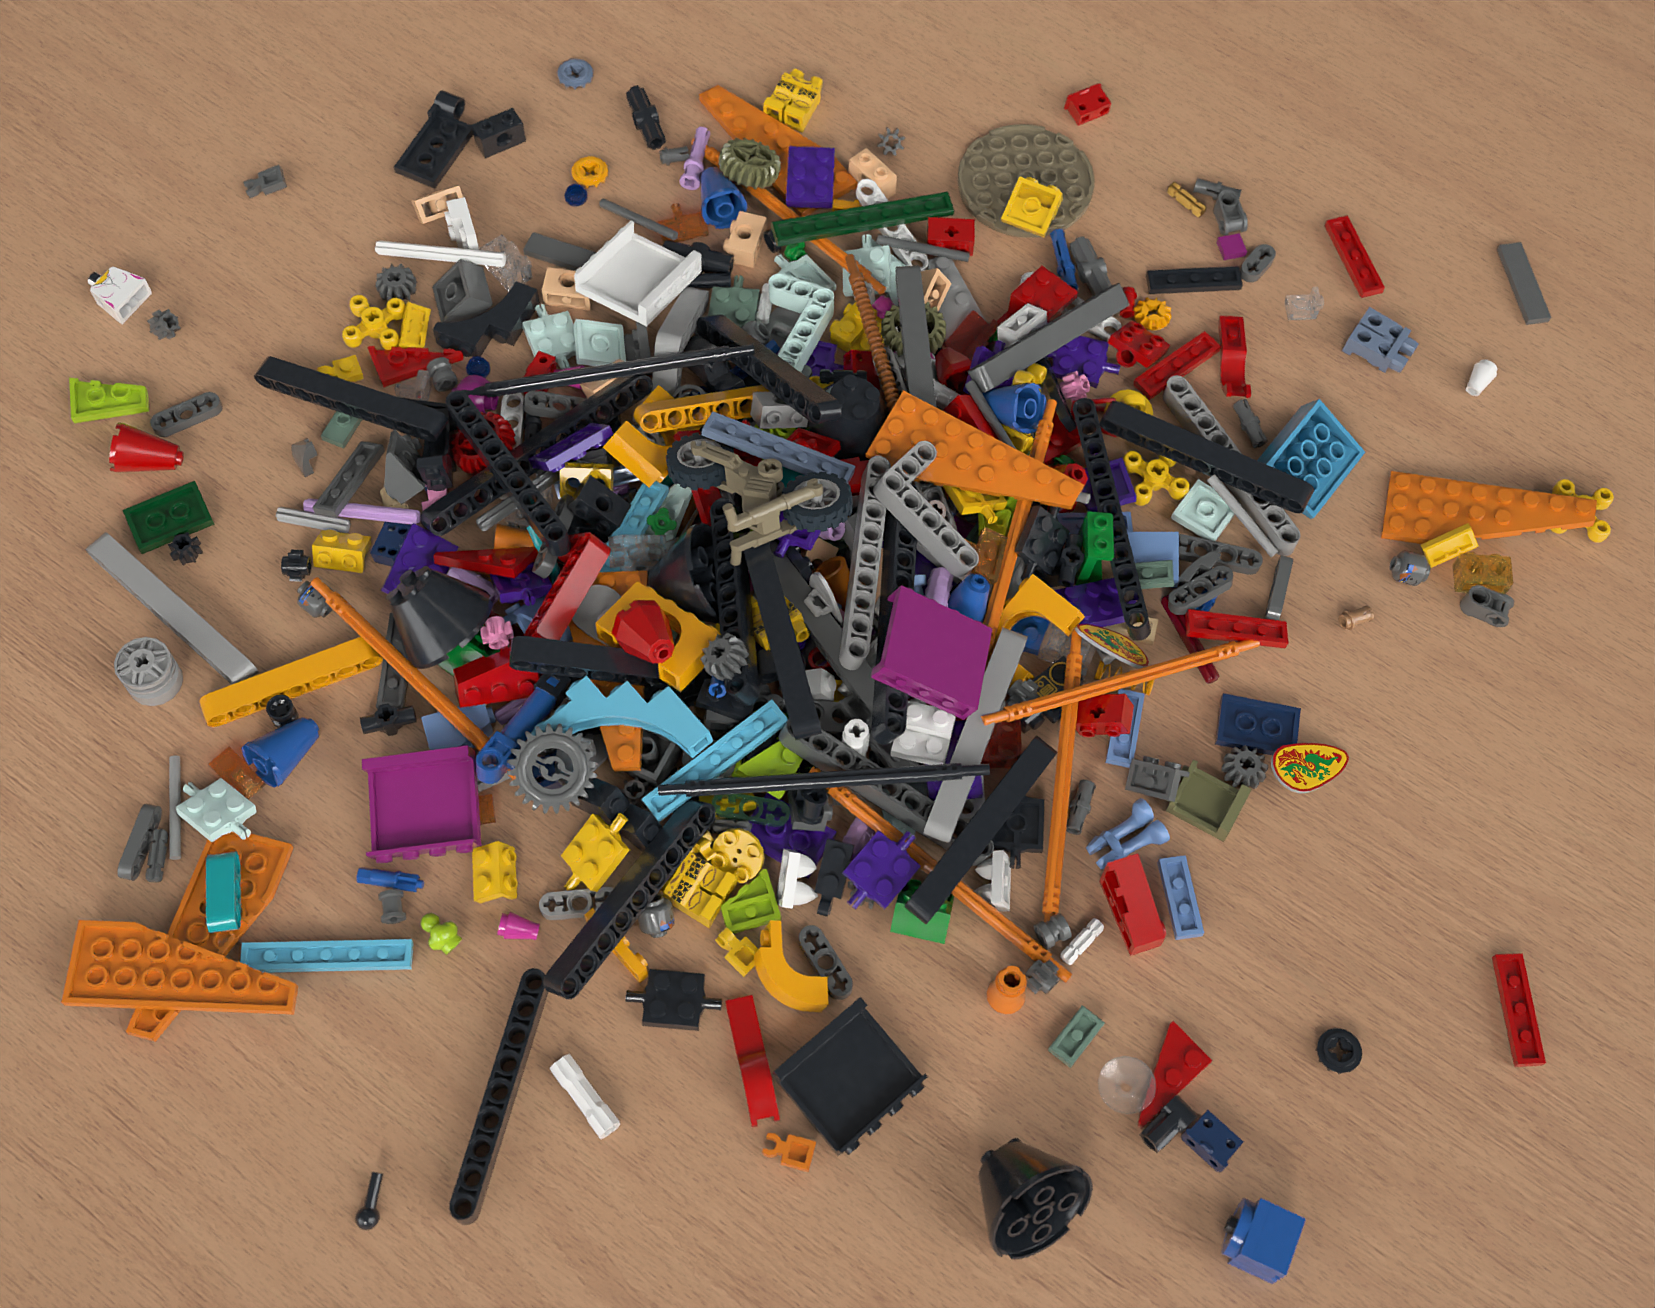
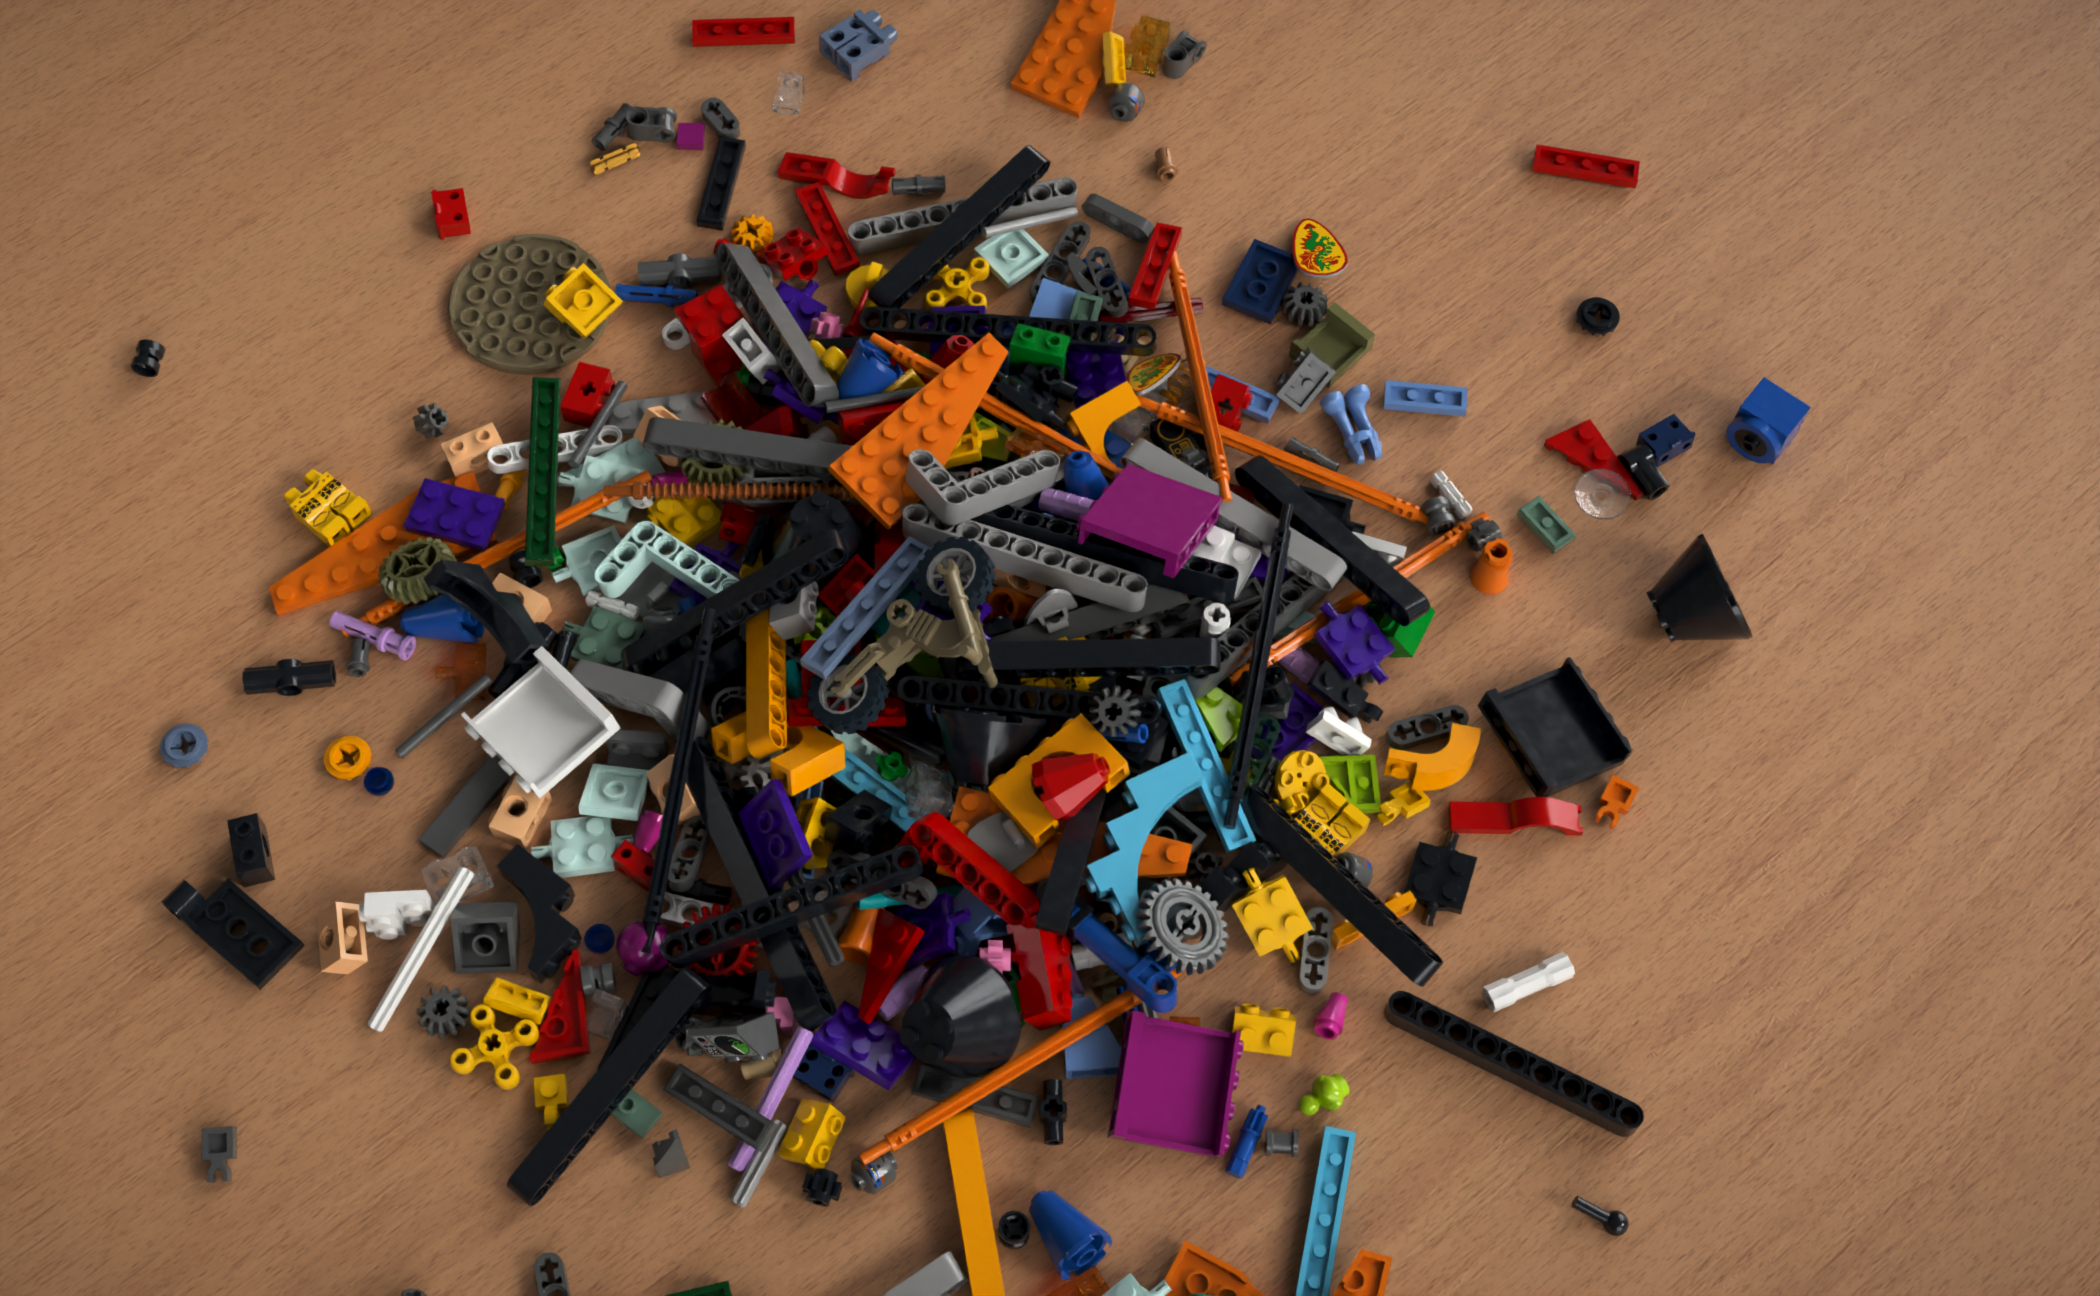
camera: 75 degrees left, 0 degrees up
(721, 219) = (497, 611): none -> black arch
(1132, 904) = (1428, 438): red wedge -> none
(1314, 450) = (967, 141): dark azure slope -> none

